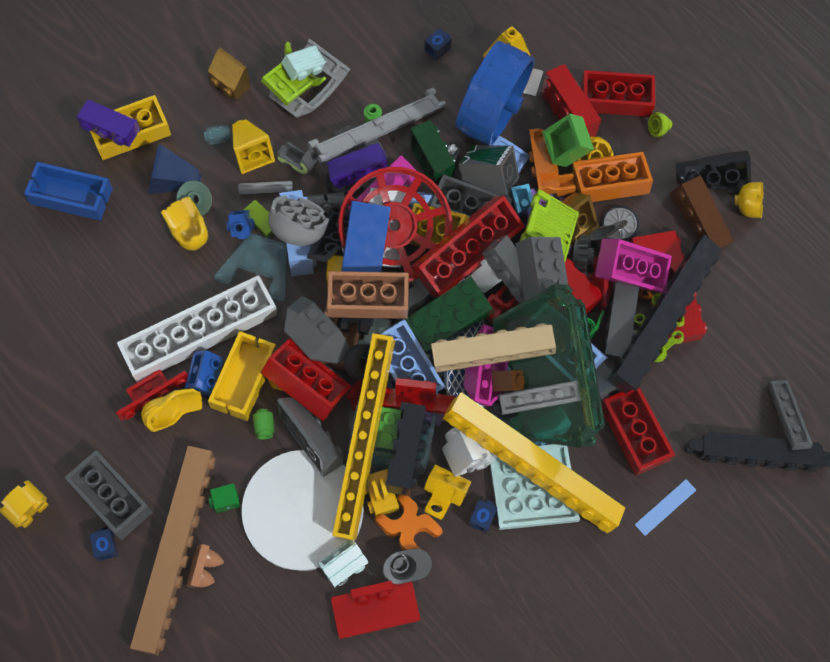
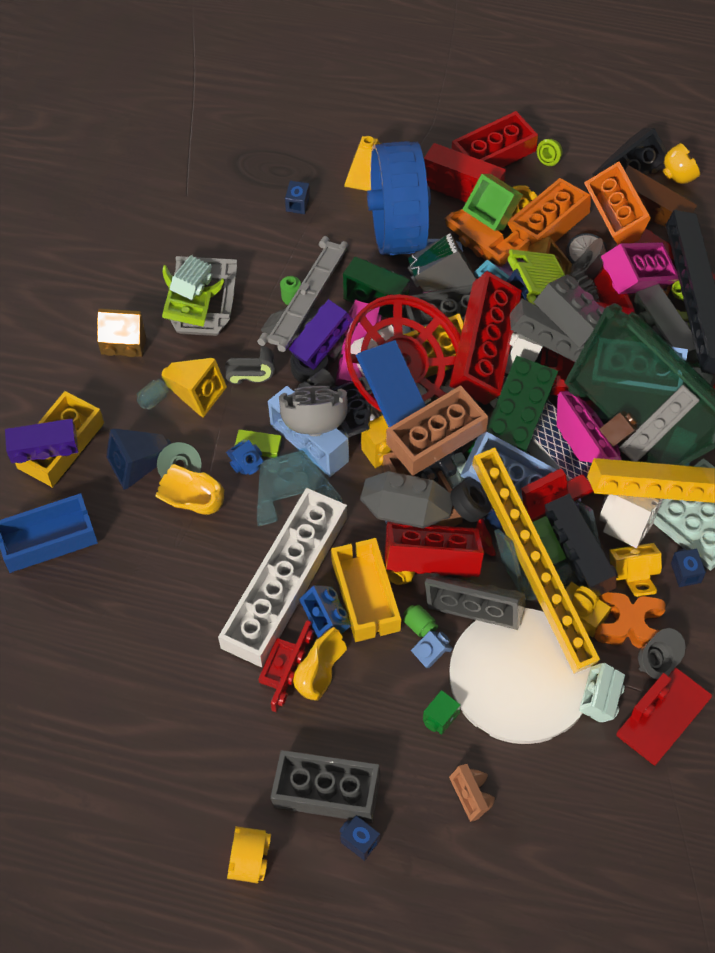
camera: 30 degrees left, 10 degrees down
(172, 552) = (434, 799): medium nougat brick -> none
(257, 448) = (431, 648): none -> medium blue bracket
(265, 187) = (238, 413): light grey axle -> none
(493, 348) = (588, 403): tan brick -> none
(661, 203) = (618, 204): none -> orange slope

